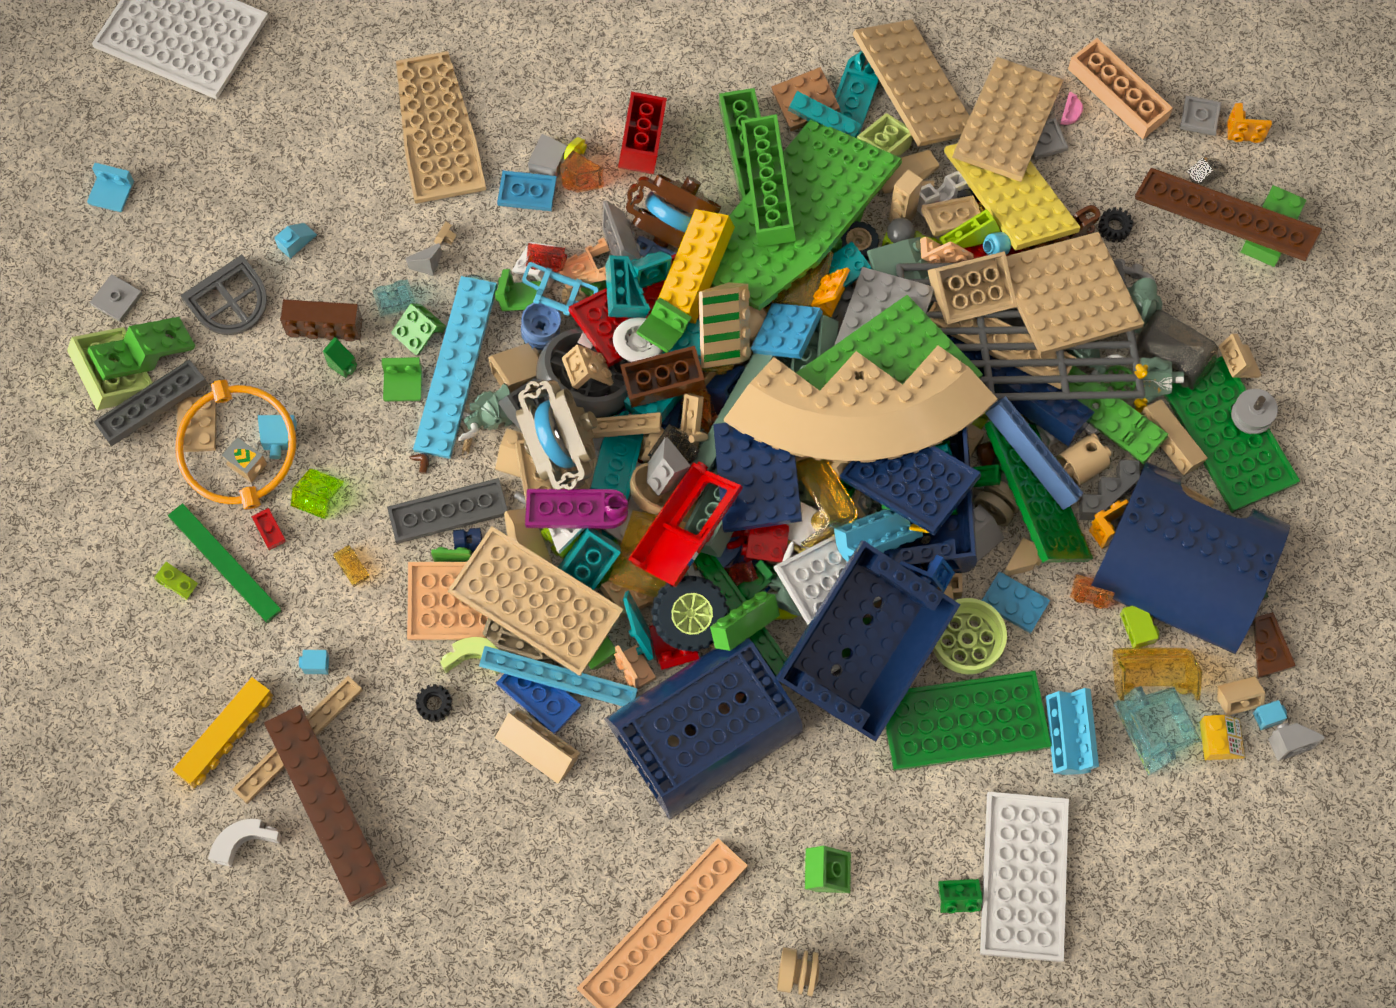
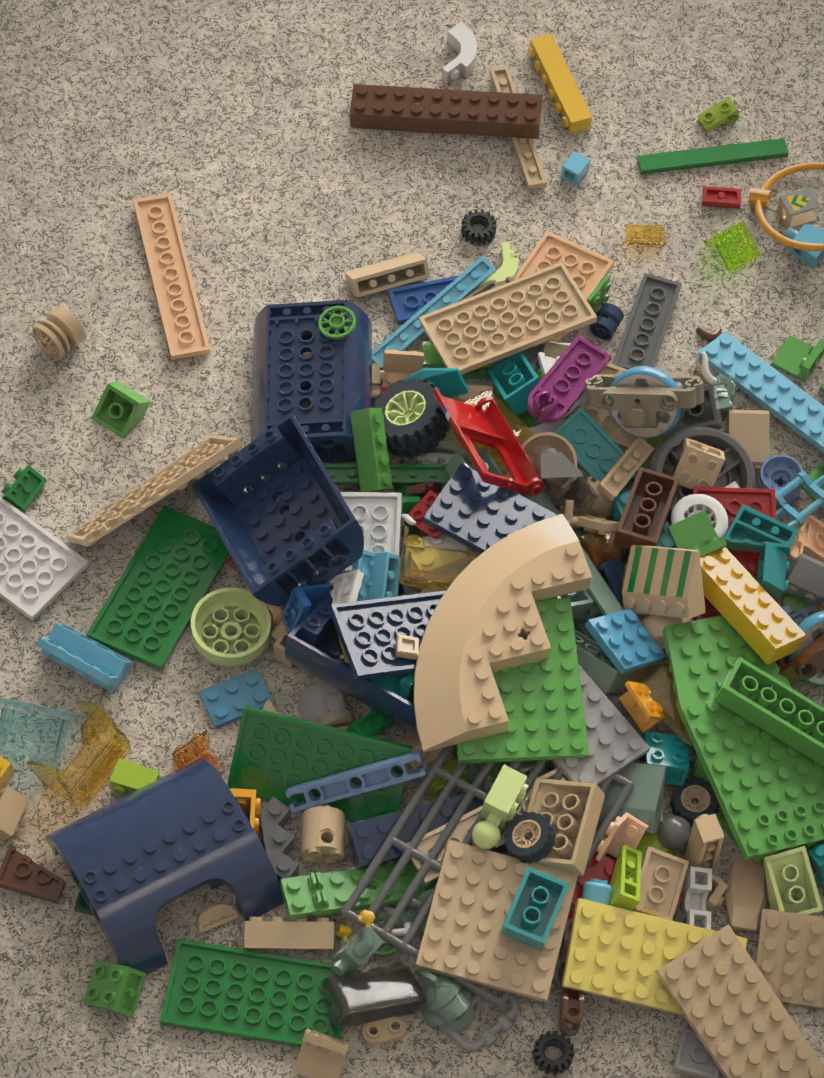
camera: 120 degrees right, 10 degrees down
(648, 718) = (337, 322): none -> bright green wheel
(650, 681) = (377, 377): none -> tan plate
(893, 772) = (158, 486): none -> tan wing
(901, 542) = (346, 586): none -> white wing
(922, 460) = (407, 647): none -> tan tile
(992, 326) = (499, 806): none -> yellowish green brick
(1009, 304) = (525, 827): none -> black wheel
(1054, 260) = (534, 909): none -> teal brick
(1254, 411) = (257, 1019): light grey wheel -> none
(1306, 526) = (115, 987): none -> bright green bracket

